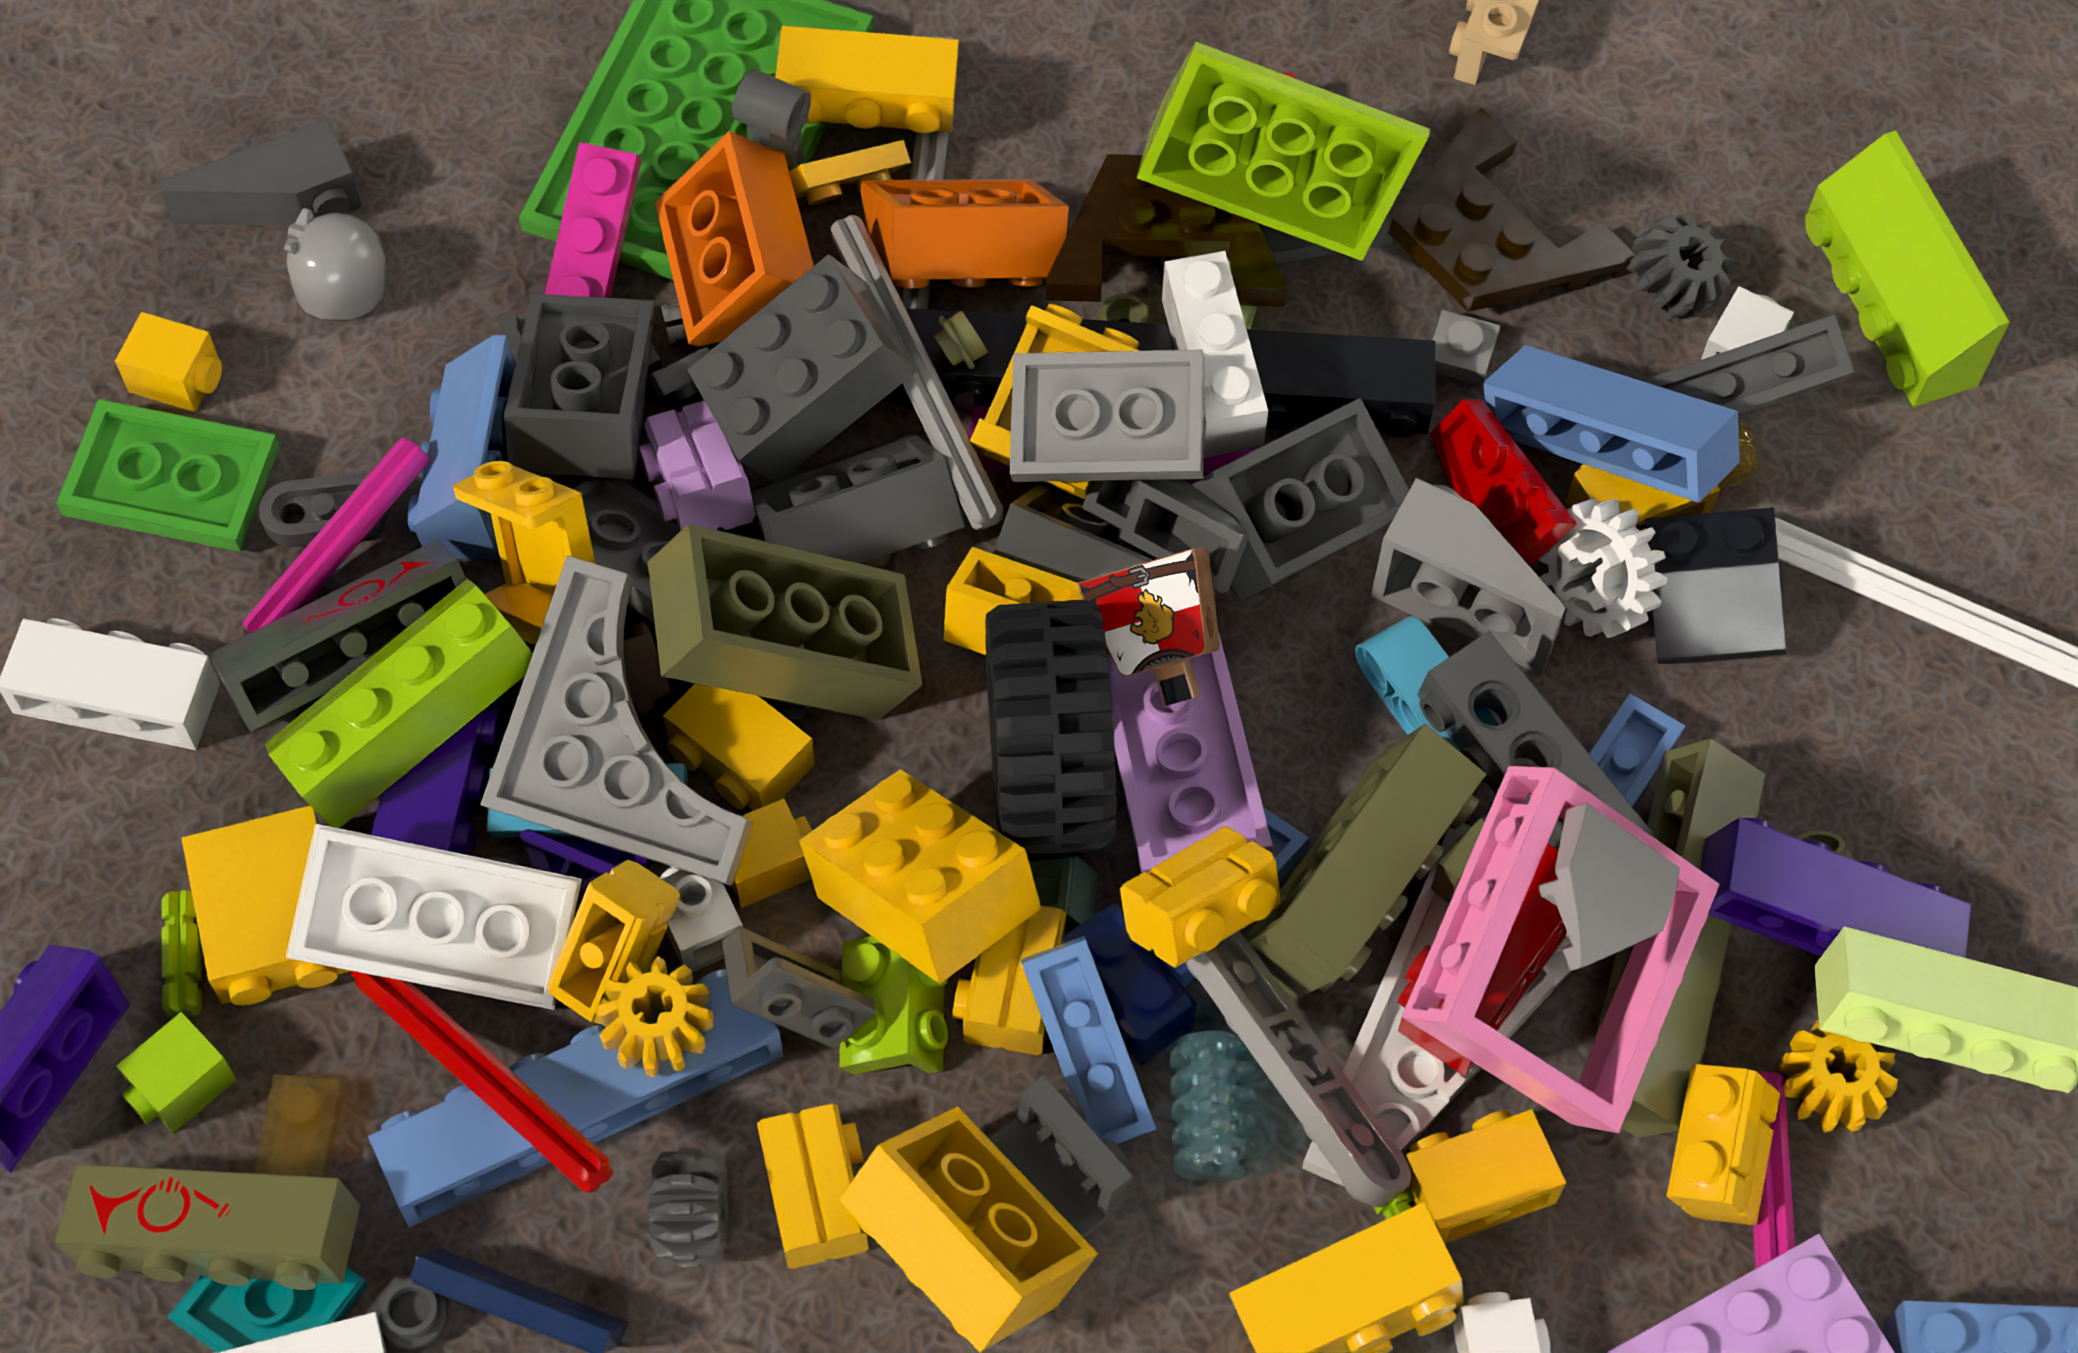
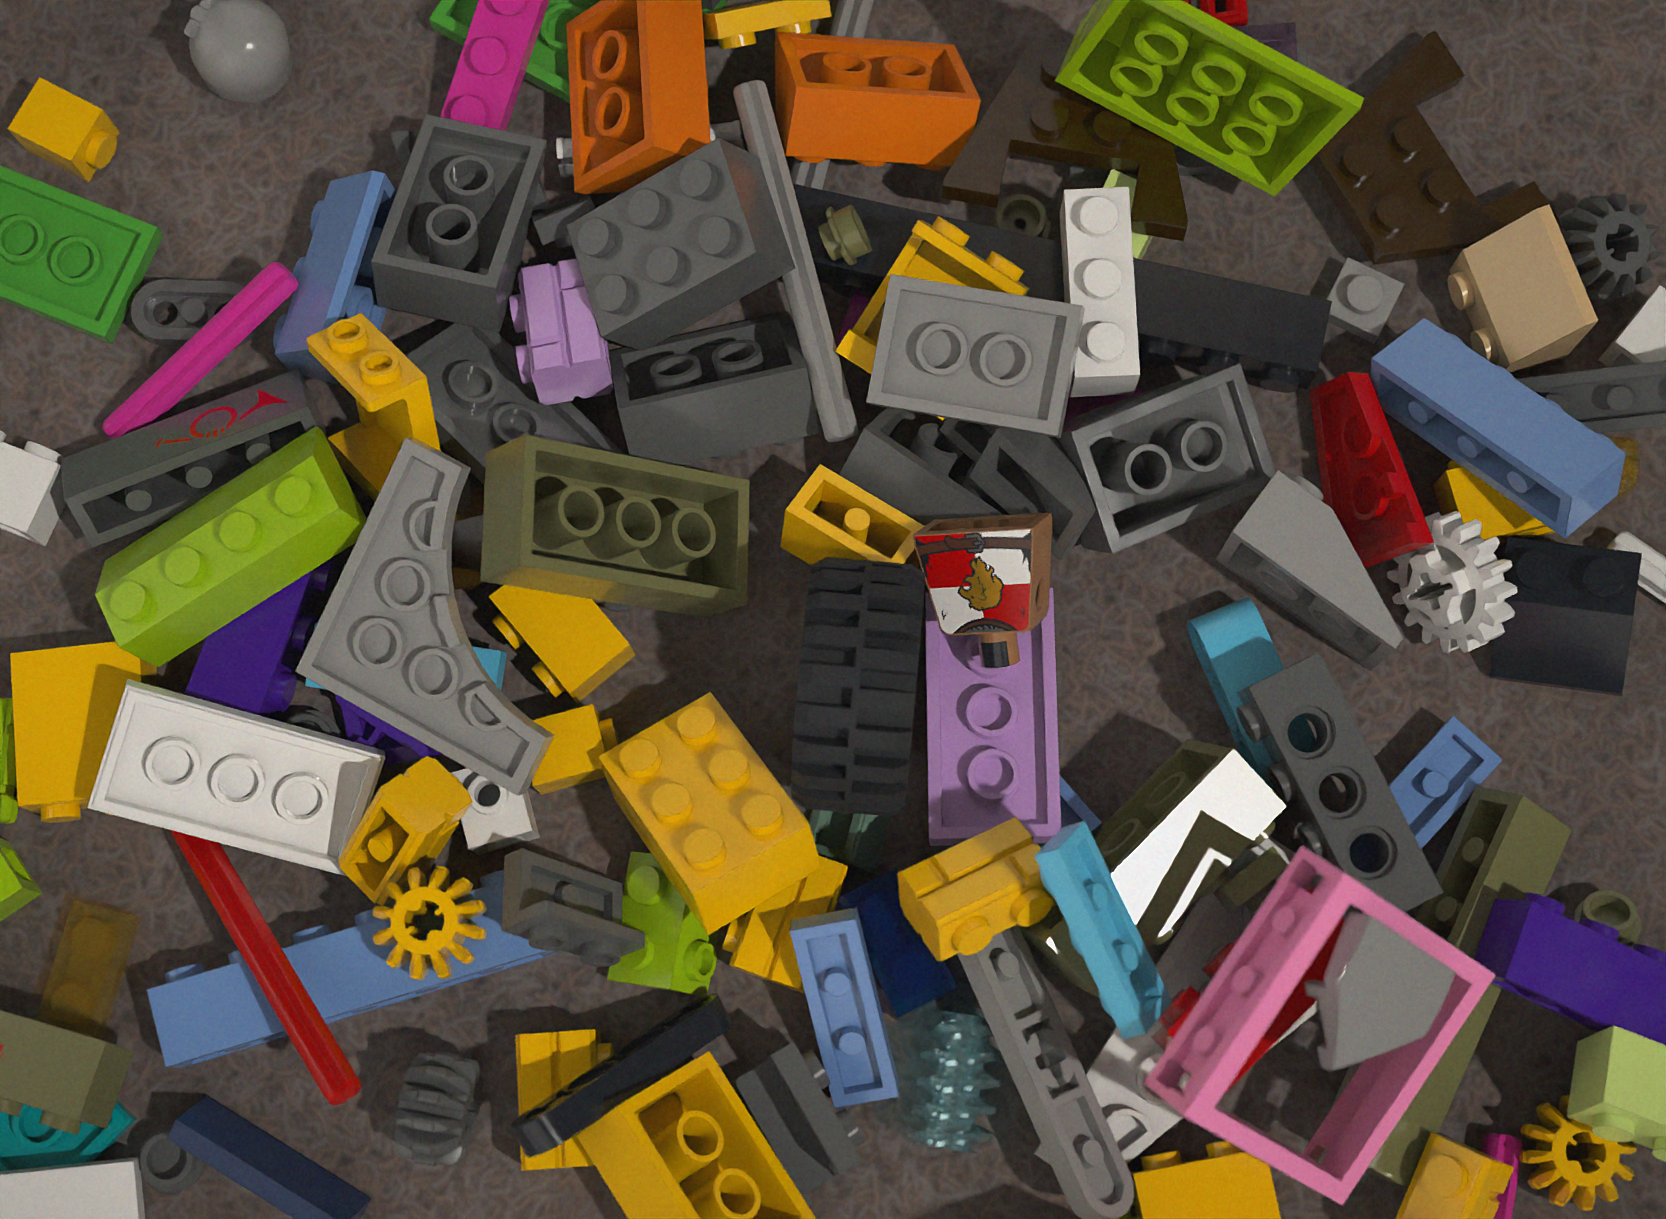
camera: 15 degrees right, 15 degrees up
(854, 1147) = (621, 1075): none -> black beam
(1332, 899) = (1103, 930): none -> medium azure plate
(1614, 307) = (1522, 294): none -> tan slope

